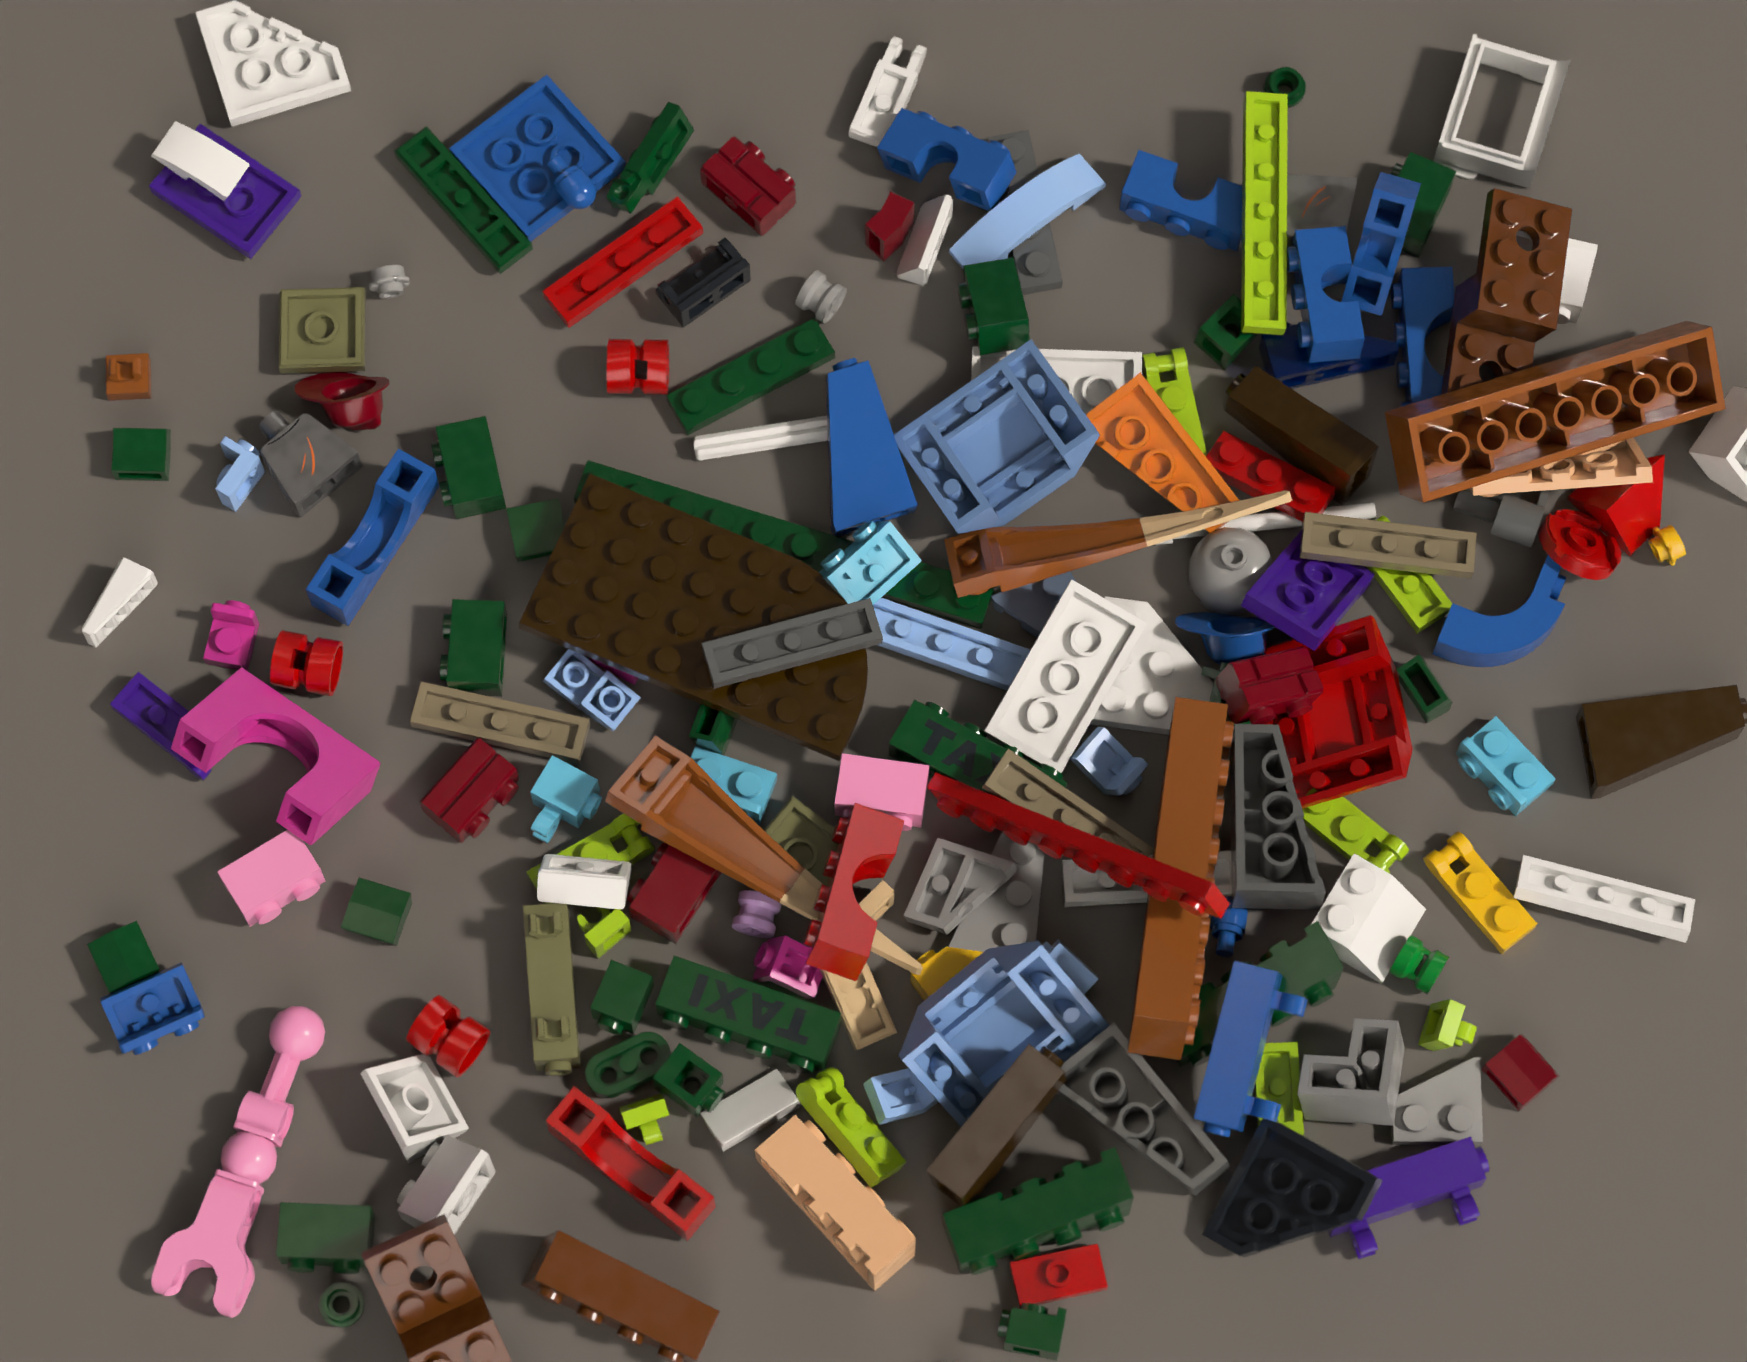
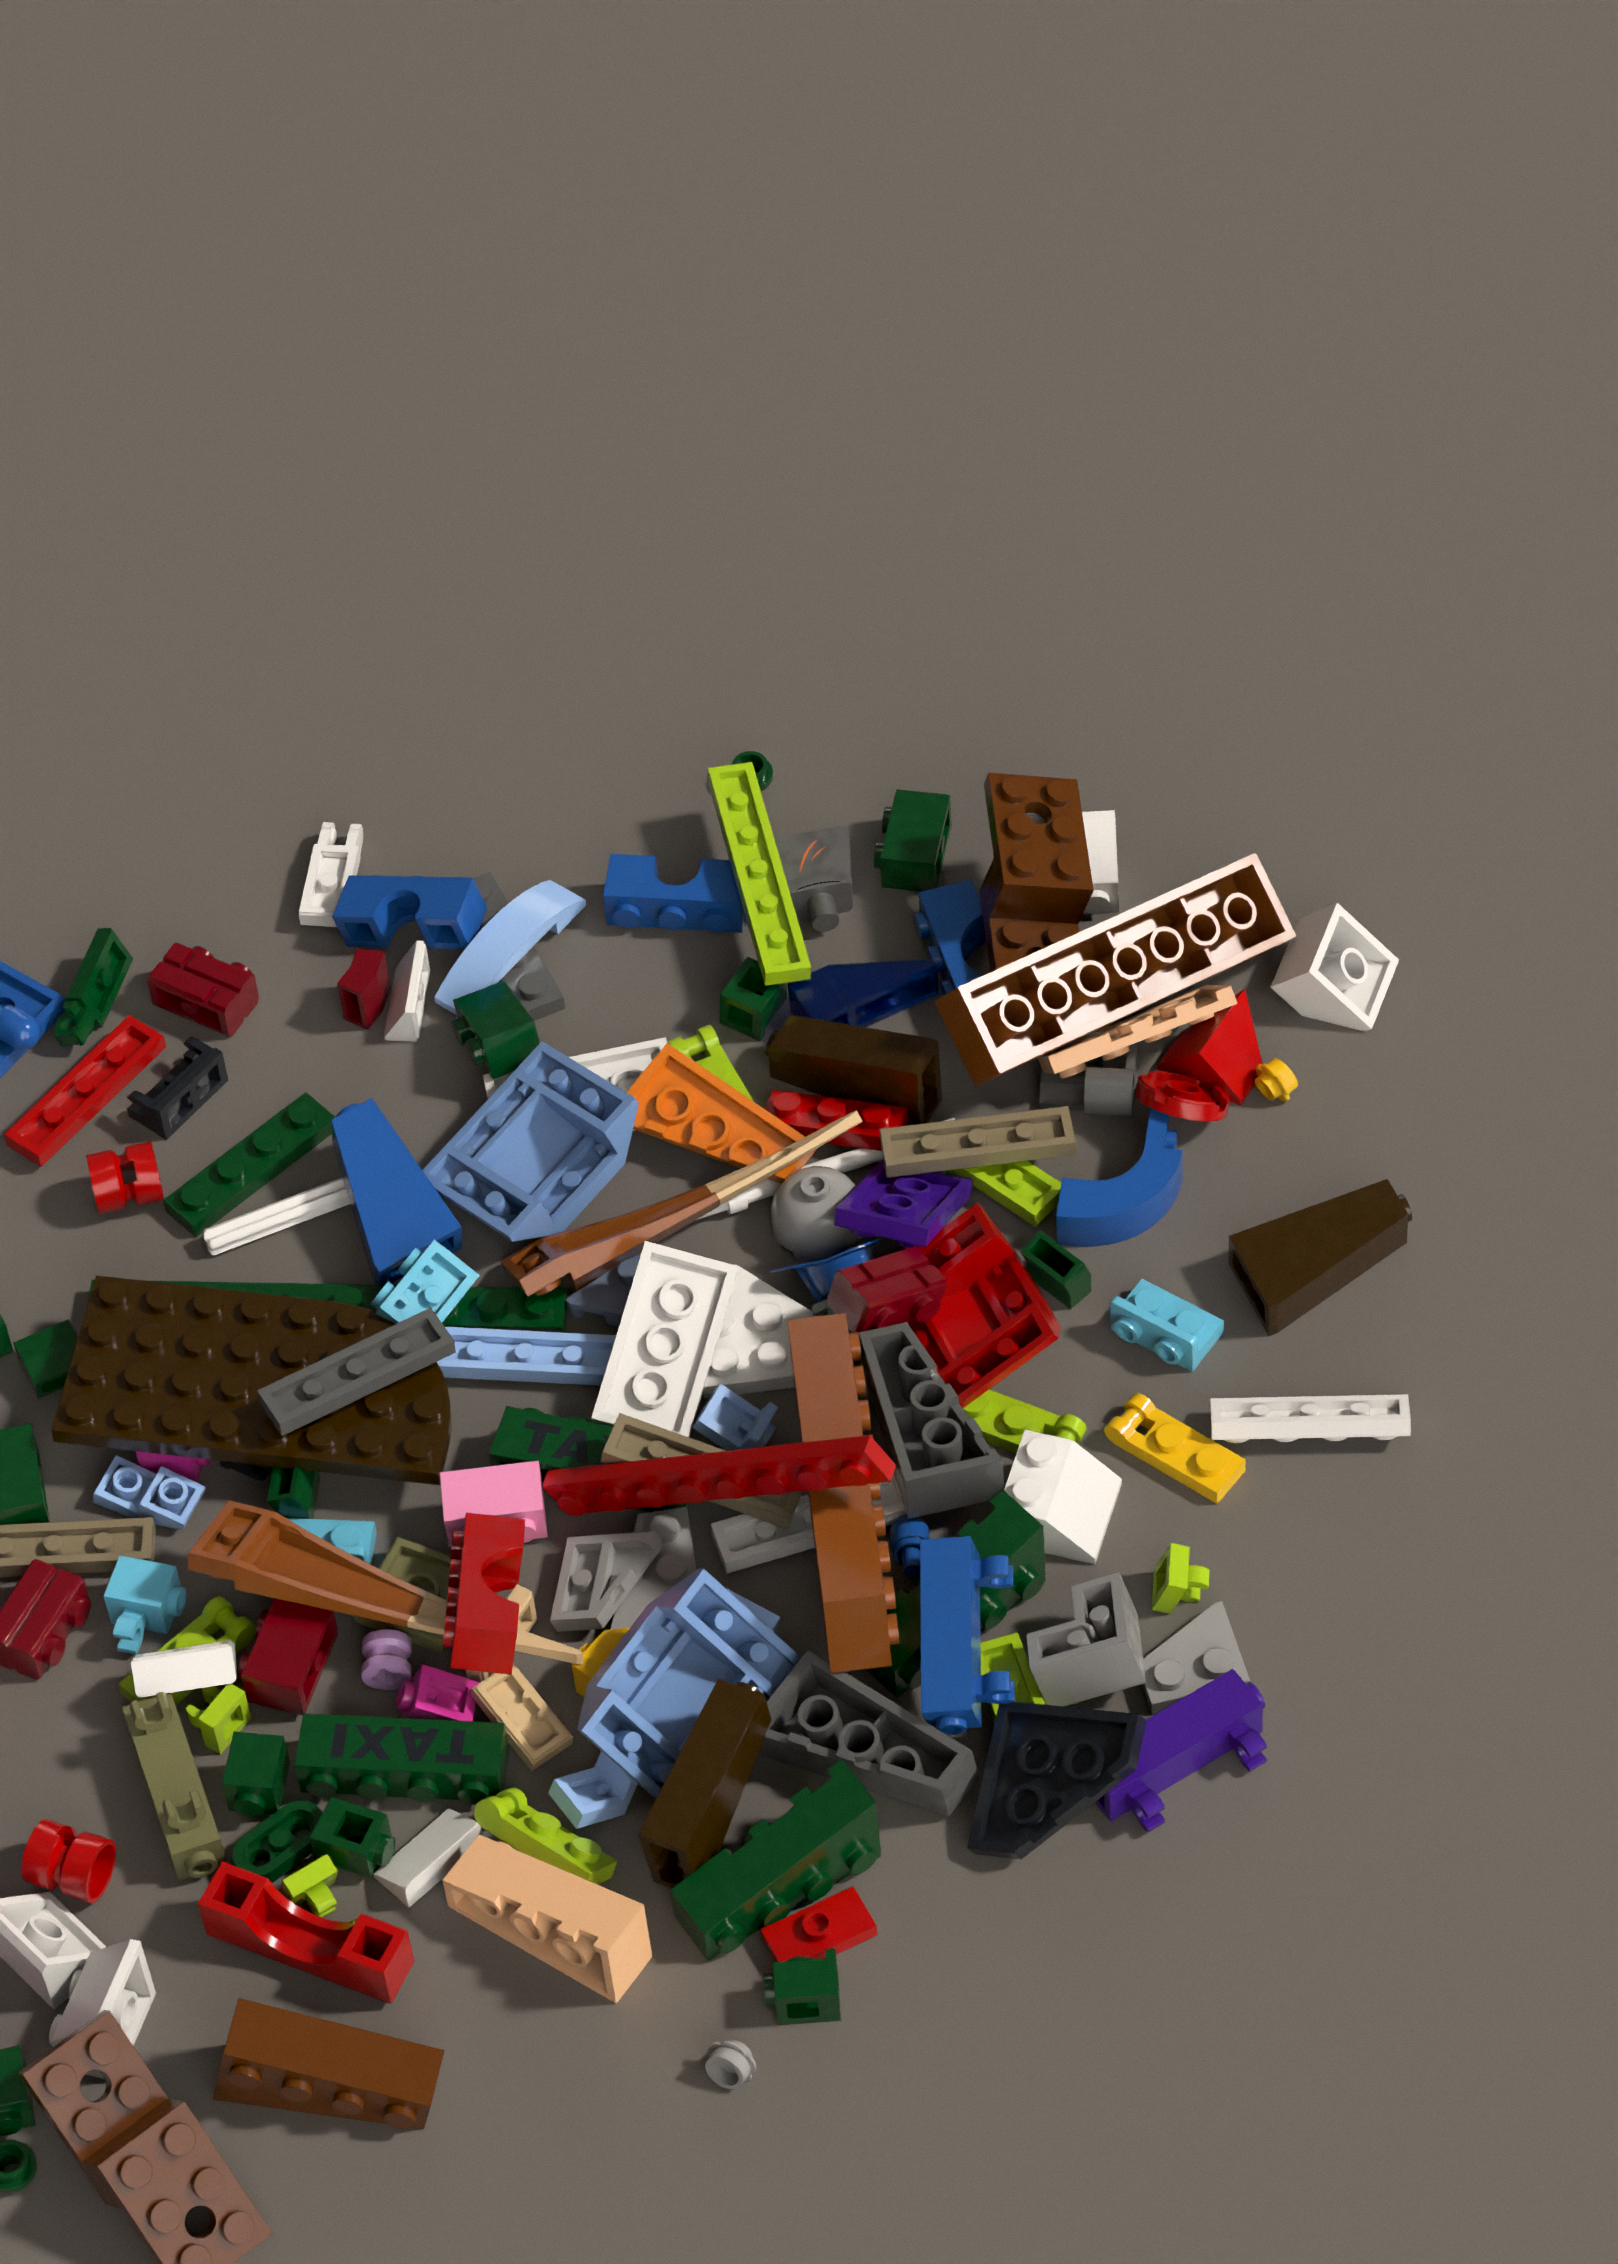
camera: 10 degrees left, 20 degrees down
(821, 296) = (307, 1070): light grey wheel -> none
(1328, 327) = (833, 909): blue arch -> none
(1381, 242) = (889, 869): blue arch -> none
(1411, 957) = (1128, 1528): green wheel -> none
(1471, 158) = (1002, 694): white piece -> none
(1520, 1072) = (1270, 1605): dark red piece -> none

